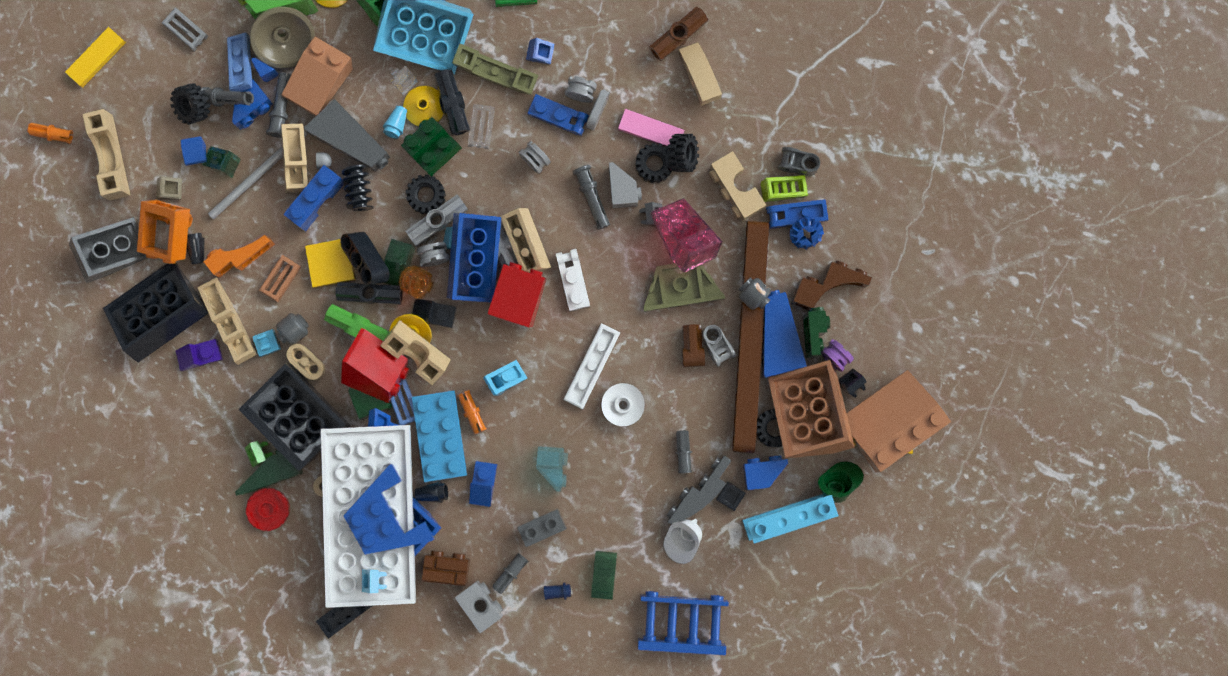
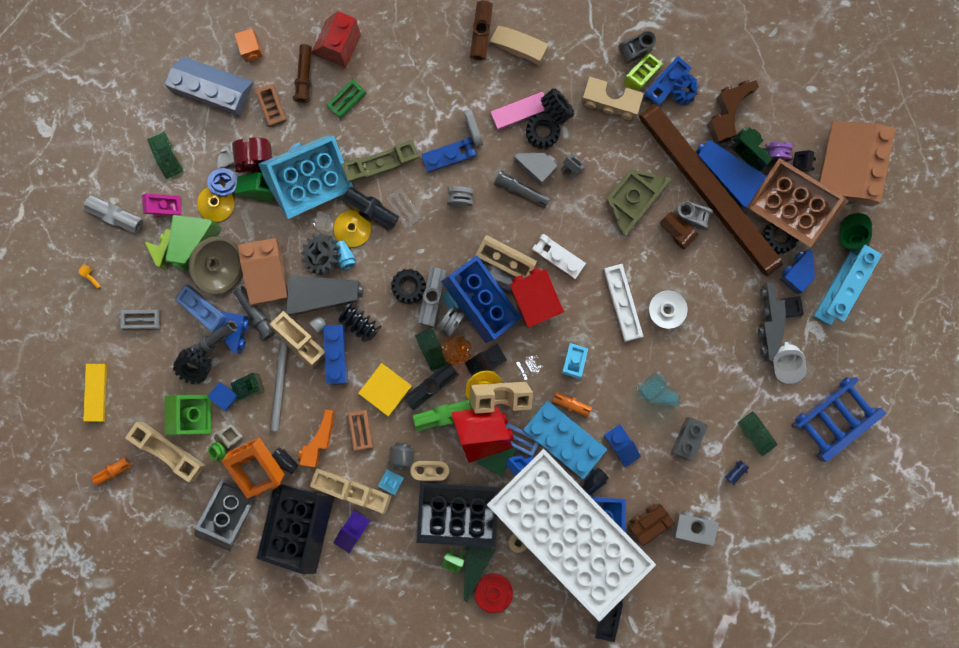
camera: 40 degrees left, 0 degrees up
(148, 191) = (216, 452): none -> bright green plate
(151, 141) = (187, 414): none -> bright green slope
(265, 72) = (222, 298): blue slope -> none
(364, 258) = (408, 364): black beam -> none
(370, 580) = (615, 576): medium azure tile -> none
(375, 522) = (581, 534): blue wing -> none
(377, 104) = (321, 253): none -> dark grey gear
(430, 146) = (383, 250): dark green plate -> none
(463, 349) = (528, 366): none -> clear tile
(510, 573) = (695, 489): dark grey axle -> none
(540, 51) = (397, 123): blue slope -> none
(580, 89) = (450, 124): light grey wheel -> none
(683, 451) = (735, 305): dark grey axle -> none
(686, 235) = (609, 159): clear pink slope -> none
(754, 293) = (691, 157): dark grey head -> none

